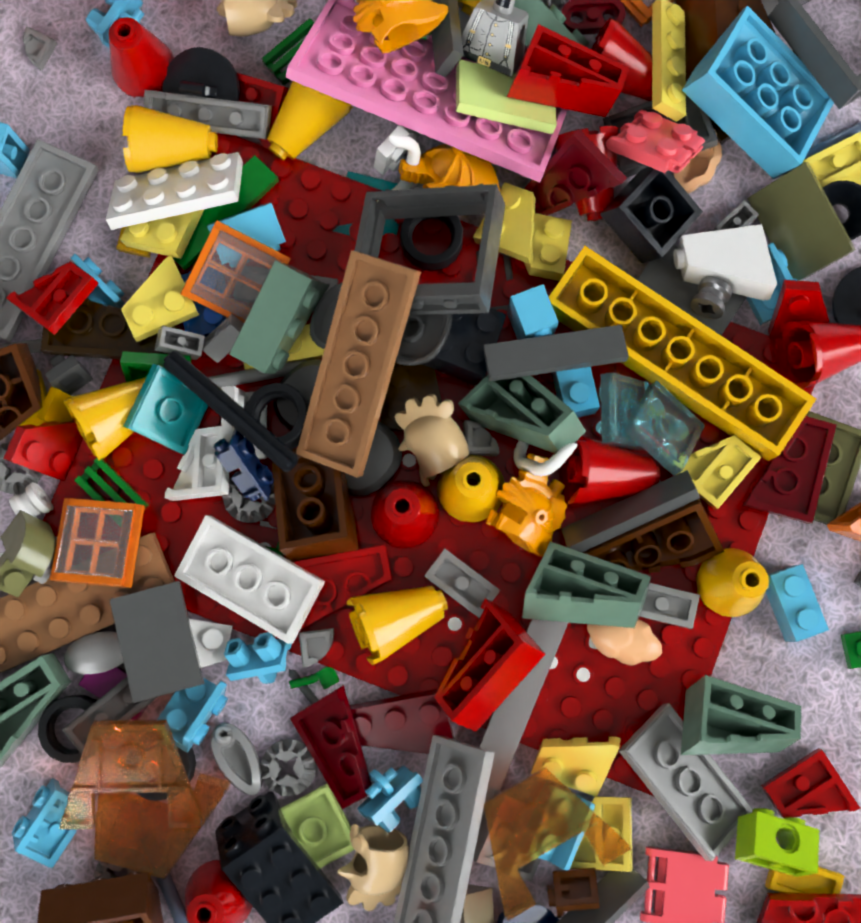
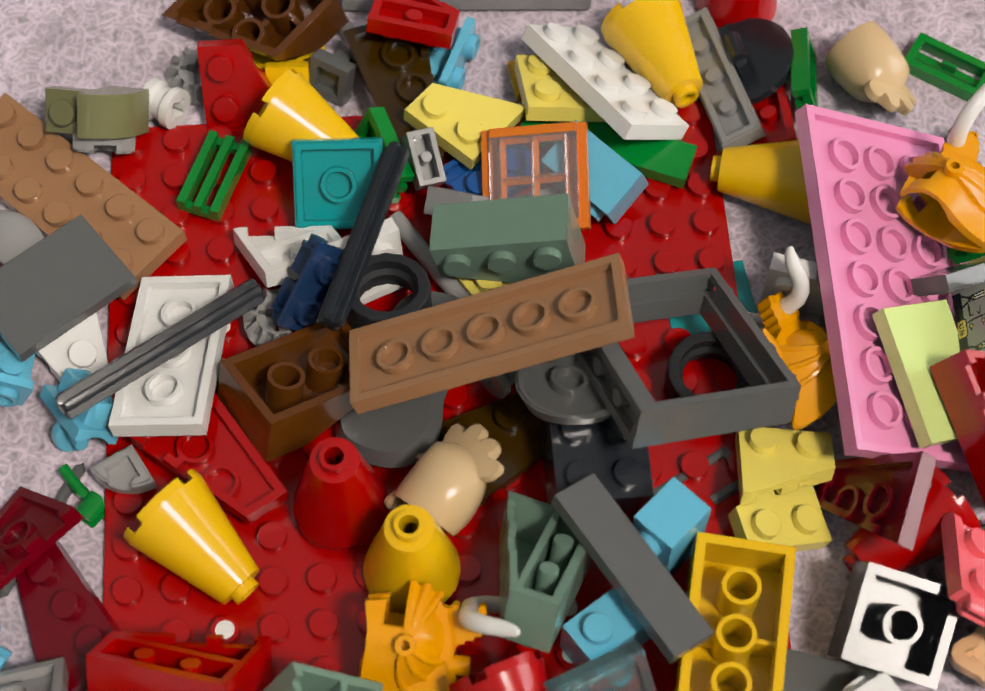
camera: 60 degrees right, 20 degrees down
(97, 542) = (145, 179): clear piece -> none
(232, 53) = (804, 69): none -> green tile
(248, 586) = (159, 349): none -> black axle
(461, 582) = (281, 605): light grey plate -> none
(479, 440) = (478, 549): light grey tile -> none

